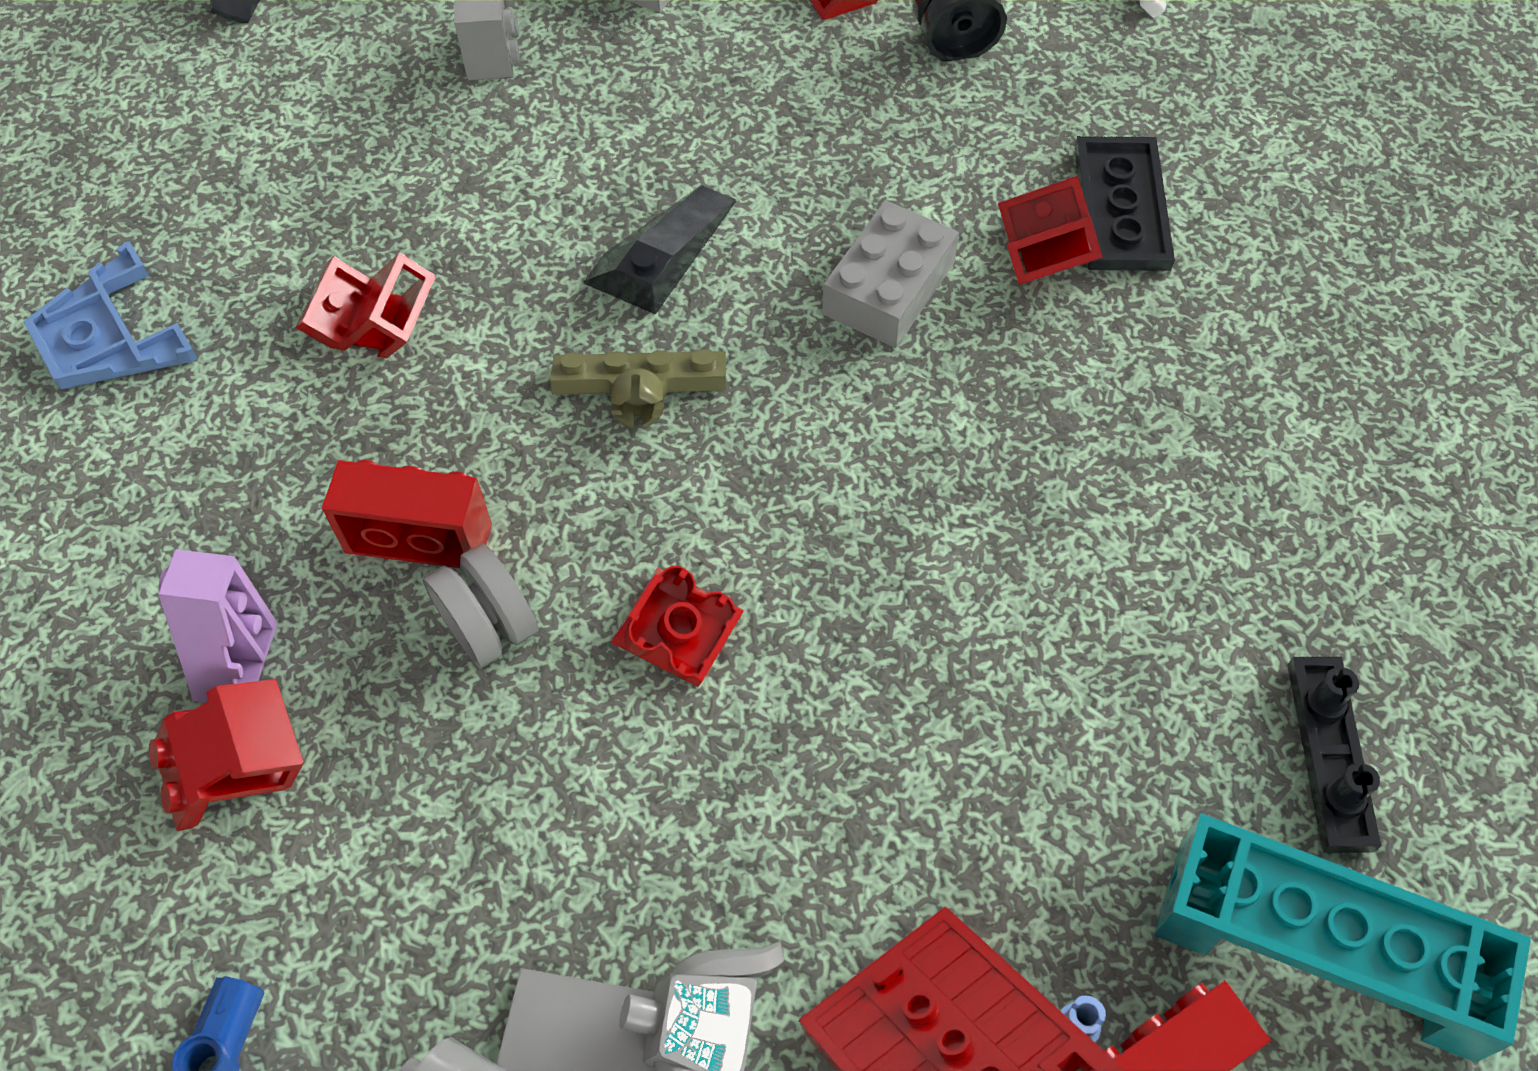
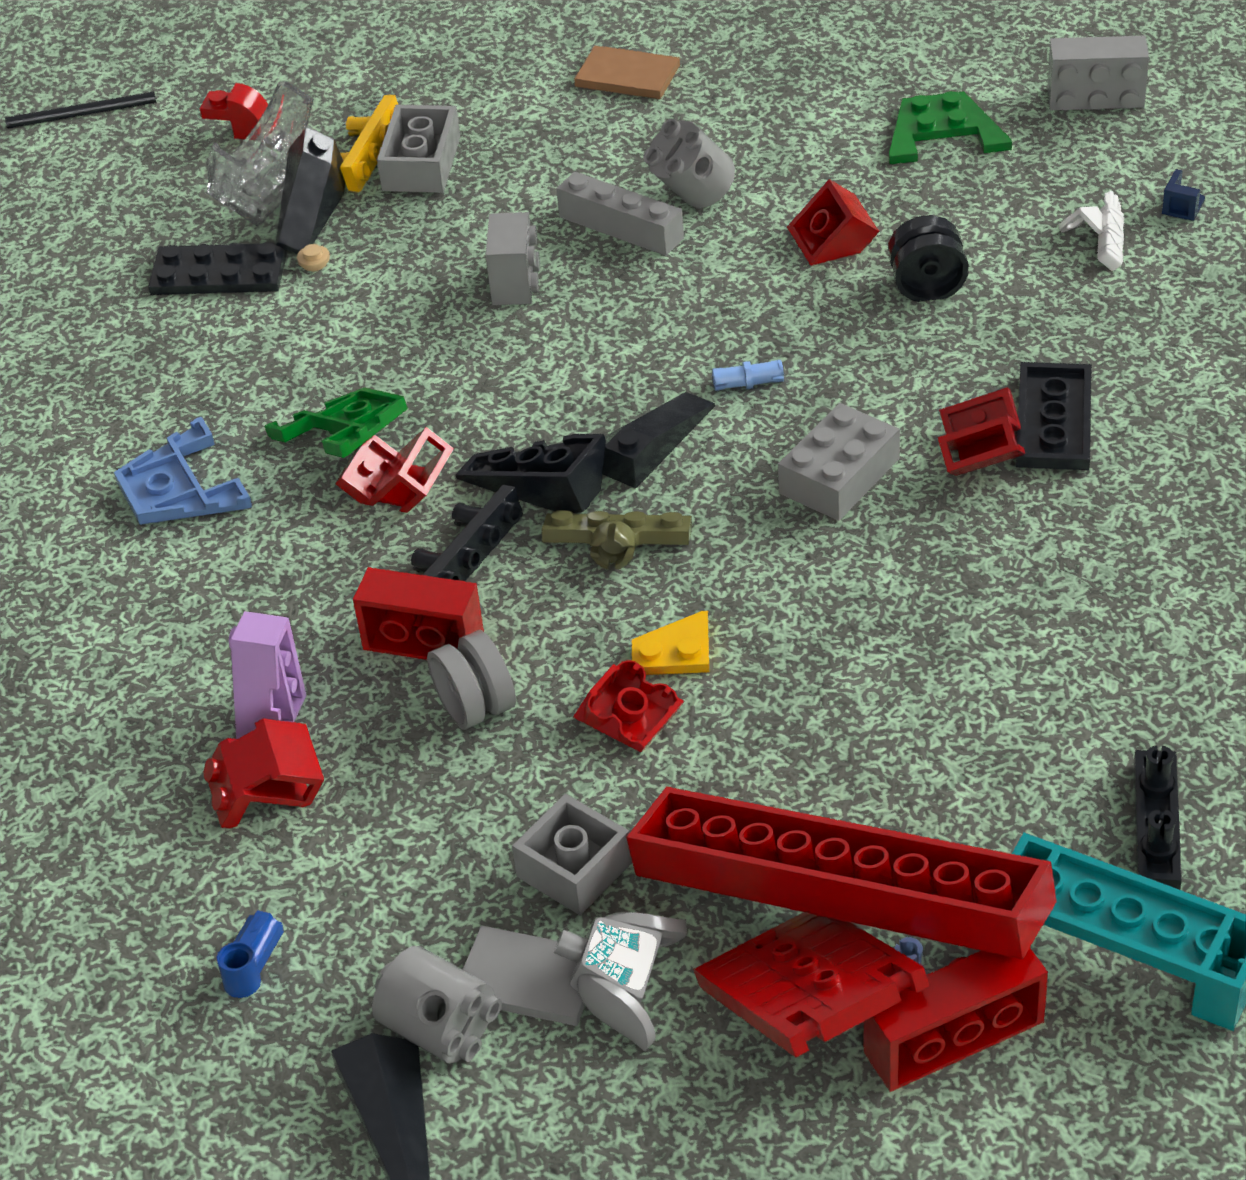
camera: 10 degrees right, 15 degrees down
(144, 44) = (217, 269): none -> black plate
(256, 26) = (313, 257): none -> tan plate
(313, 233) = (349, 418): none -> green wing
(460, 418) = (481, 534): none -> black plate
(554, 304) = (547, 476): none -> black wedge
(629, 857) = (572, 854): none -> light grey brick
(723, 534) = (675, 647): none -> yellow wing
(770, 162) = (747, 375): none -> light blue pin
(993, 893) = (845, 871): none -> red brick

